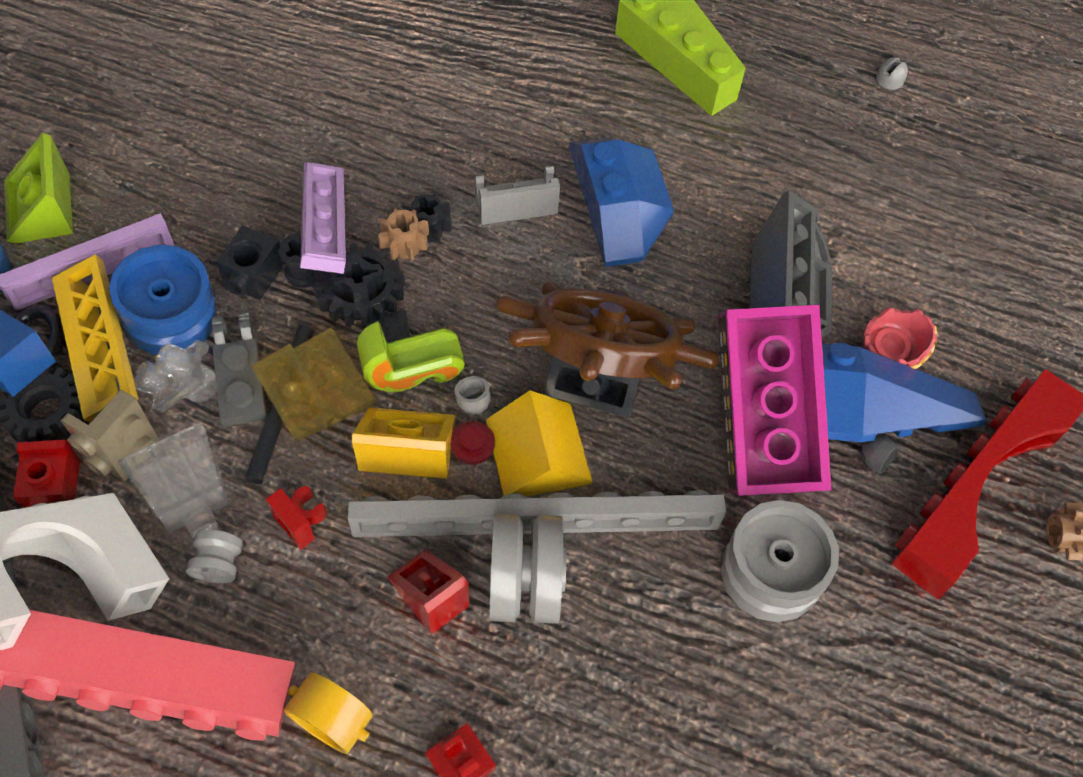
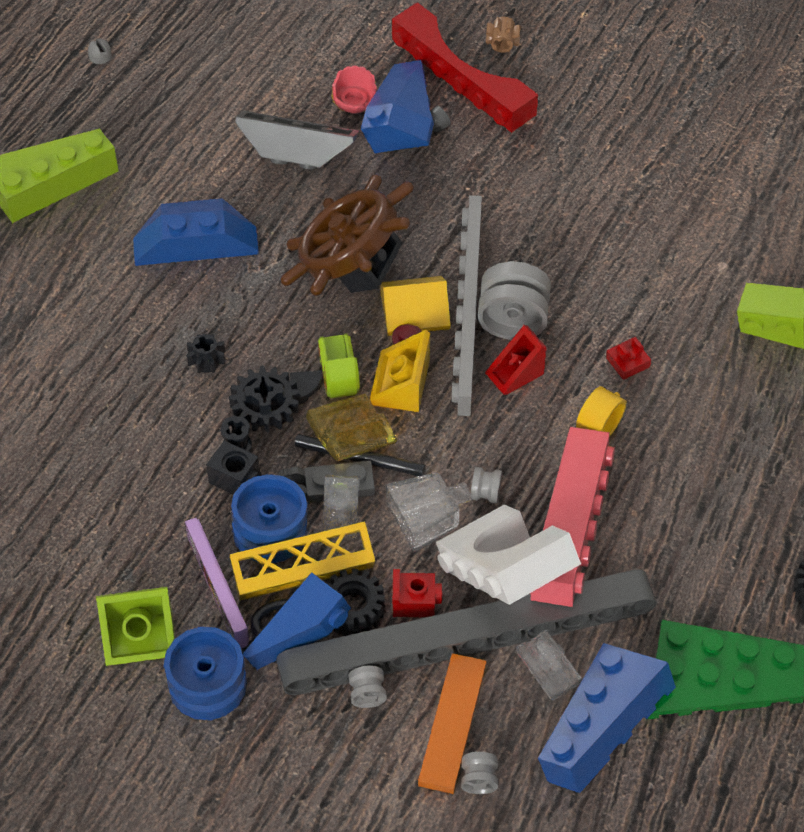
camera: 80 degrees left, 5 degrees down
(111, 435) = (395, 536): dark tan bracket -> none
(293, 518) = (459, 441): red tile -> none
(323, 218) = (201, 413): lavender tile -> none
(403, 234) = (230, 359): medium nougat gear -> none
(472, 395) = (367, 326): light grey hinge -> none
(517, 199) = (188, 296): light grey hinge -> none
(774, 400) = (411, 151): dark pink brick -> none
(779, 560) = (515, 177): light grey wheel -> none

